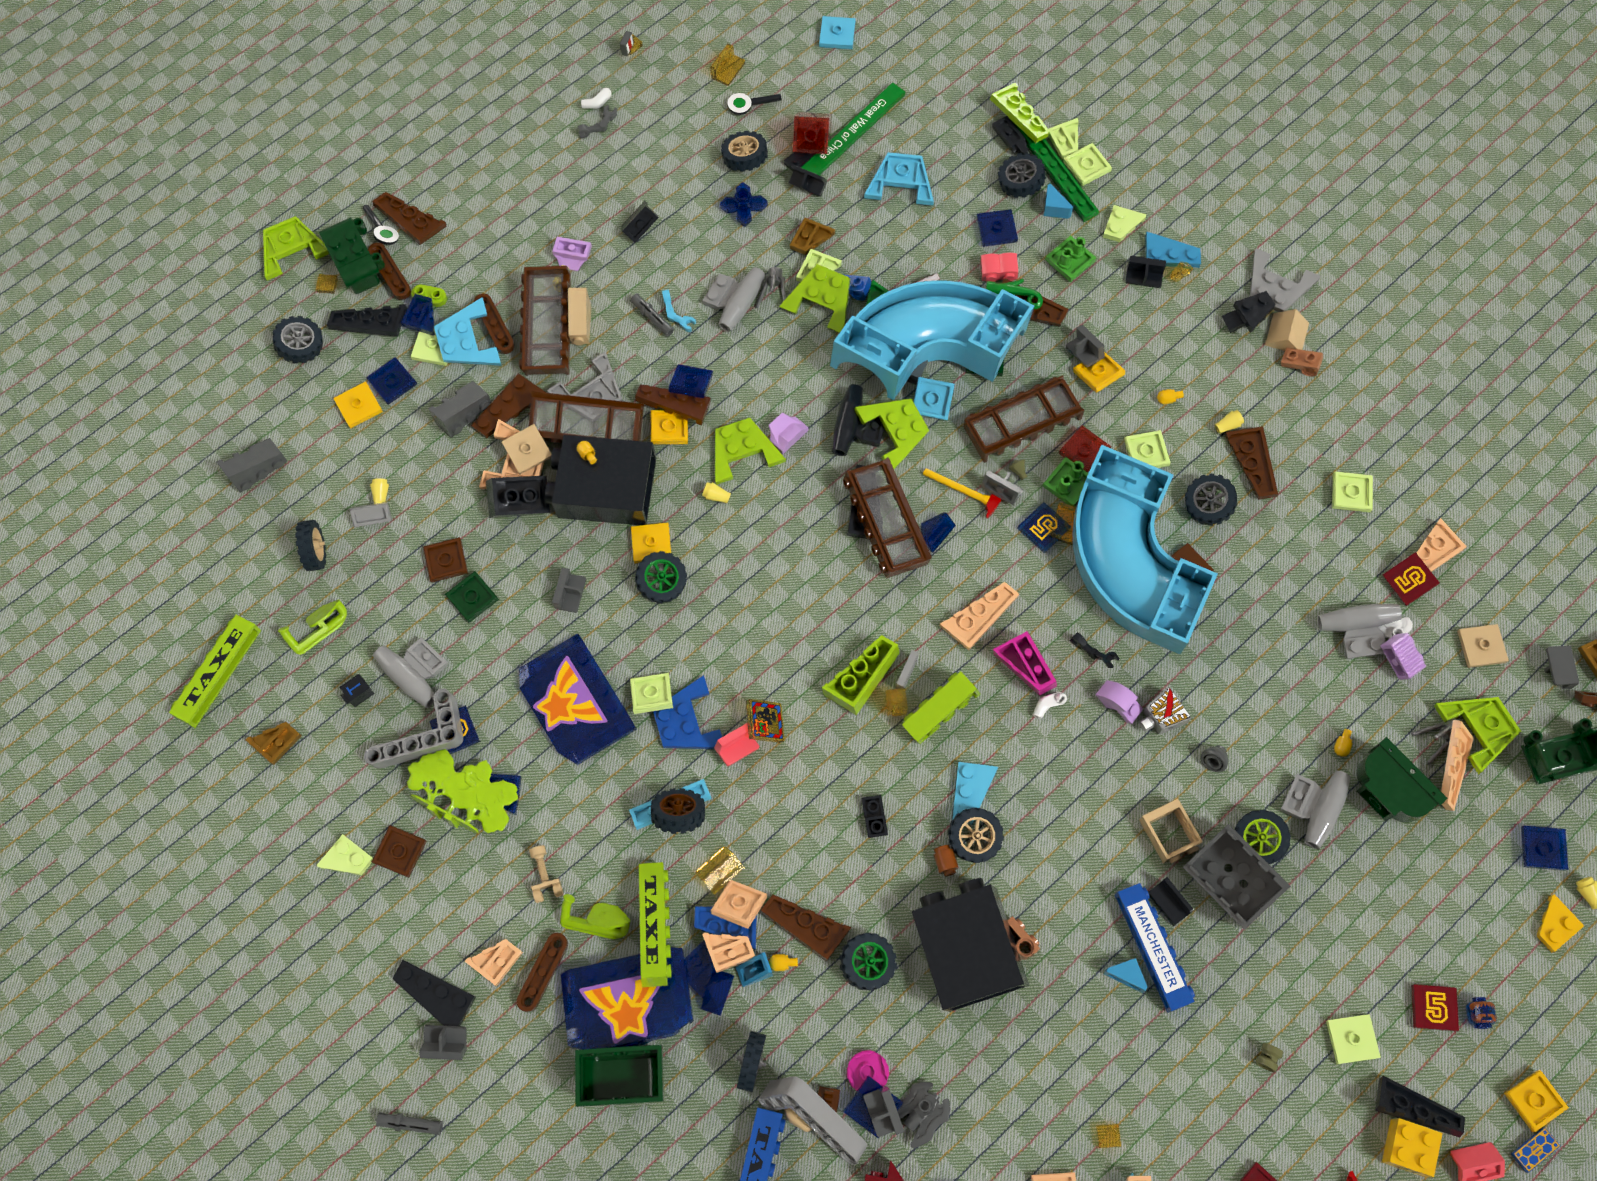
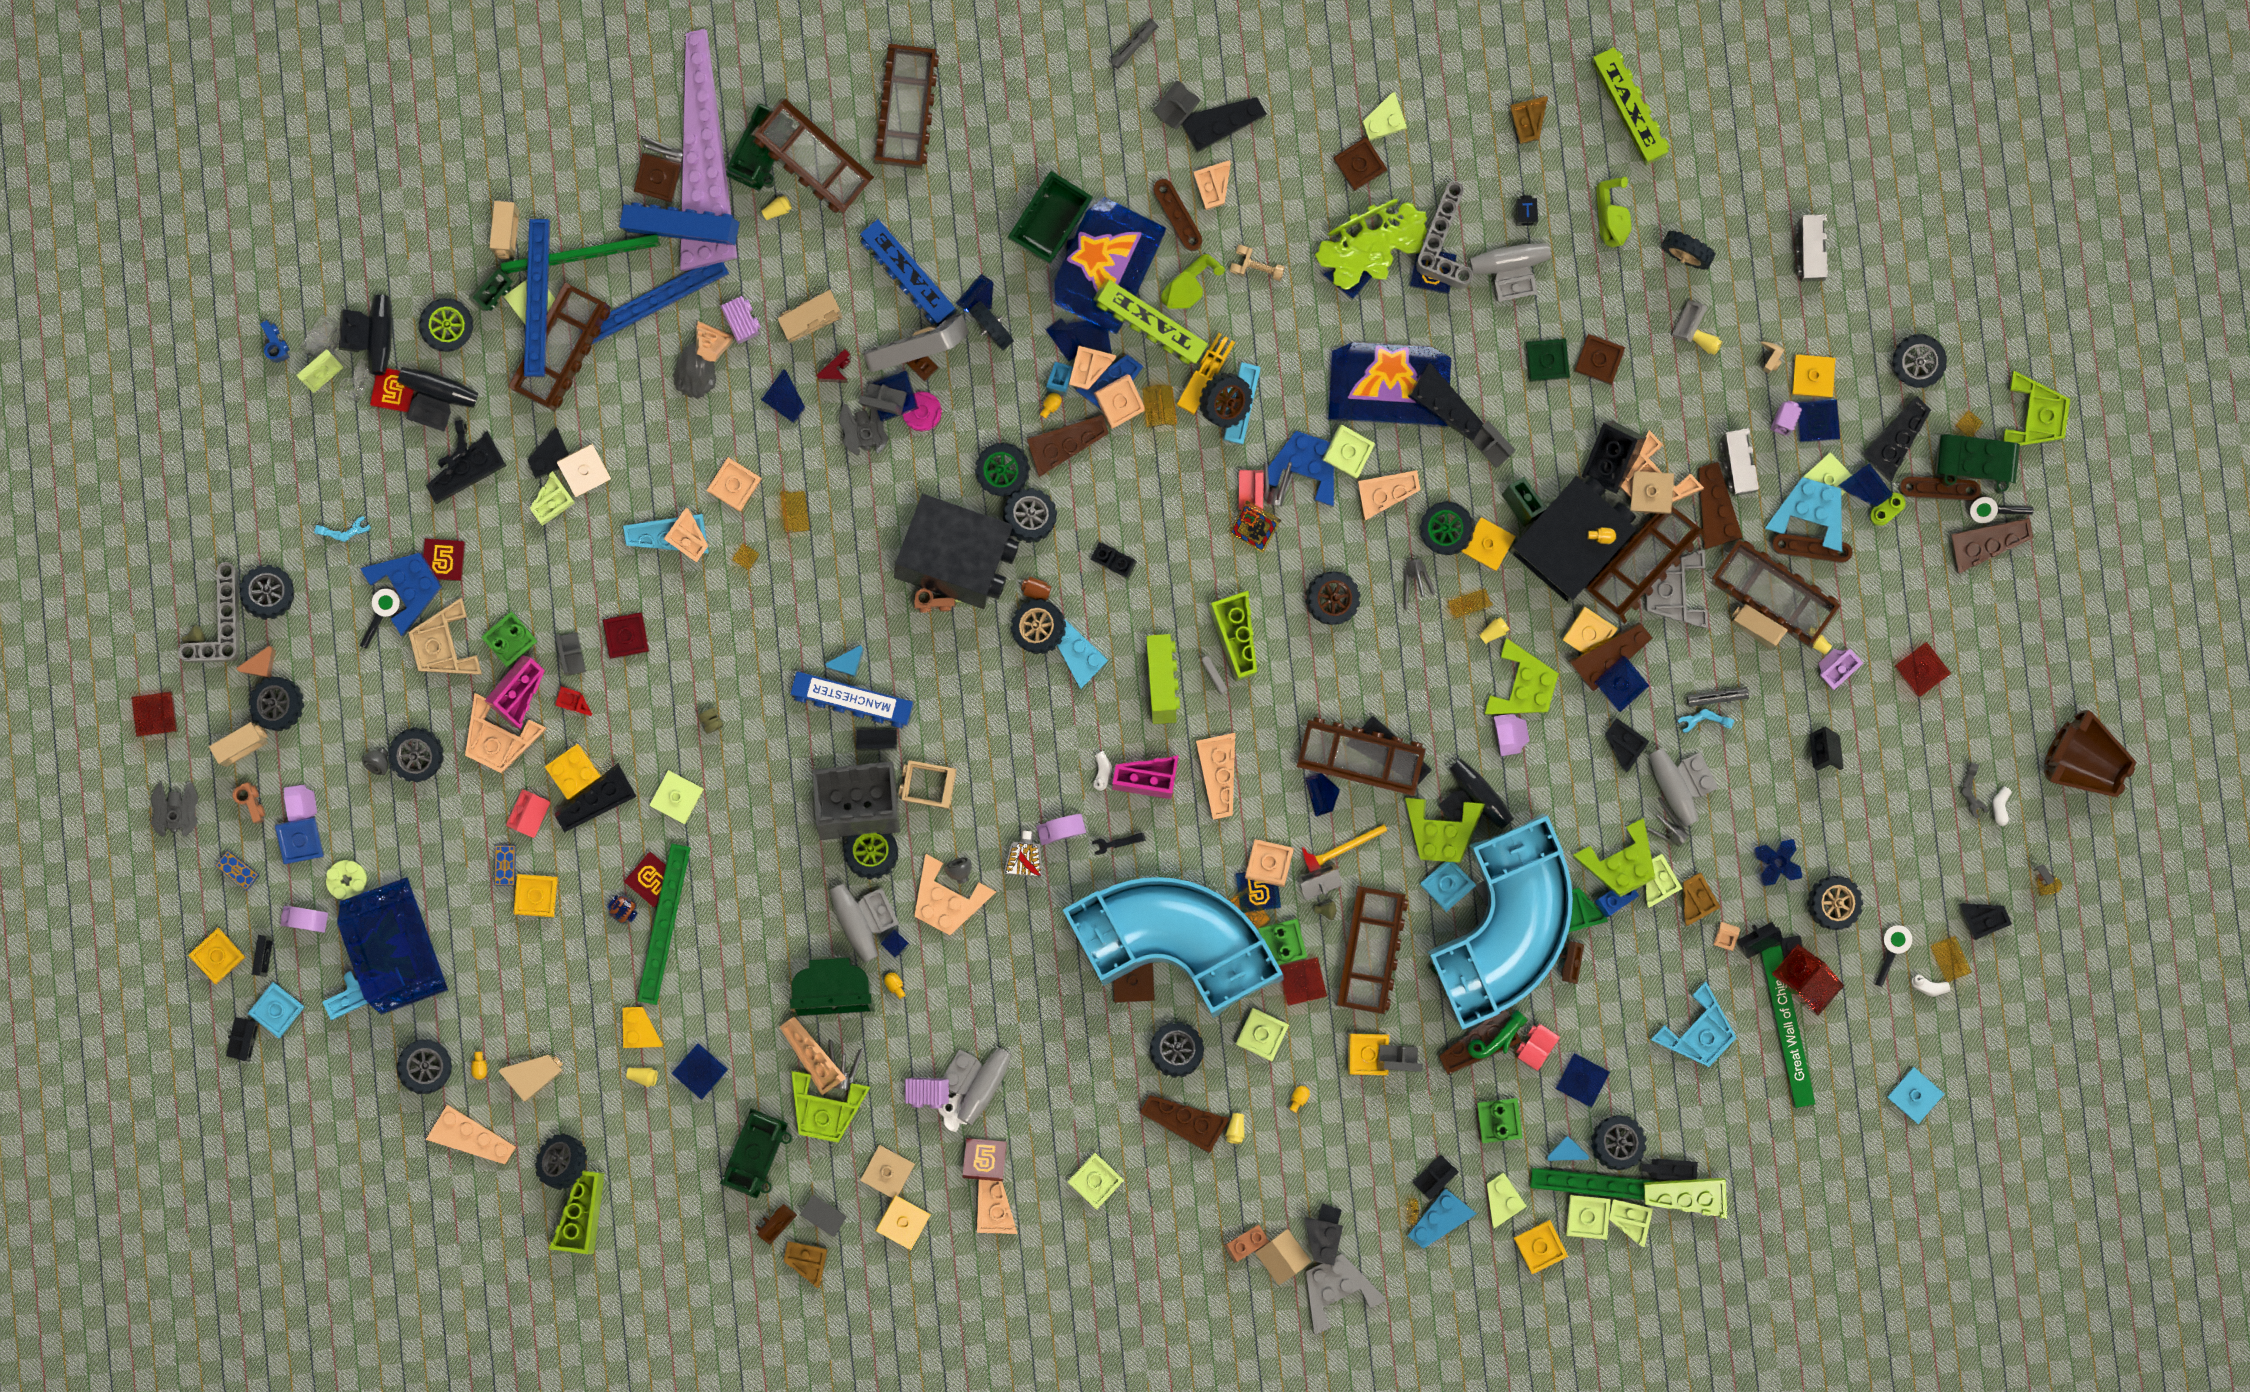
camera: 125 degrees right, 15 degrees up
(361, 437) = (1773, 362): none -> tan plate
(403, 396) = (1786, 418): none -> lavender brick
(523, 68) = (2088, 757): none -> reddish brown cone
(534, 202) = (1922, 669): none -> clear red plate
(560, 645) = (1441, 400): none -> black wing
(599, 535) = (1524, 501): none -> dark green brick
(664, 645) = (1386, 491): none -> light nougat wing
(677, 850) = (1190, 398): none -> yellow arm
(684, 63) = (1984, 918): none -> black wing
(709, 523) = (1470, 604): none -> clear yellow panel
(710, 579) = (1416, 570): none -> flat silver plant
(727, 722) = (1277, 496): none -> flat silver plant
(730, 1099) = (980, 290): none -> clear blue slope
(734, 351) = (1625, 743): none -> black wing
(758, 67) = (1929, 988): none -> white arm
(777, 636) = (1314, 594): none -> black wheel
(820, 204) = (1727, 936): none -> light nougat slope
(872, 900) = (1046, 507): none -> black wheel
(896, 702) = (1193, 645): clear yellow brick -> none
(1018, 531) = (1269, 863): none -> light nougat tile
(1037, 1121) = (794, 511): none -> clear yellow panel
(1133, 179) = (1540, 1247): none -> yellow plate
(1252, 750) = (942, 906): none -> light nougat wing
(1314, 764) = (895, 944): none -> clear blue brick
(1461, 968) = (664, 924): none -> green tile
(1508, 606) = (902, 1222): none -> yellow plate

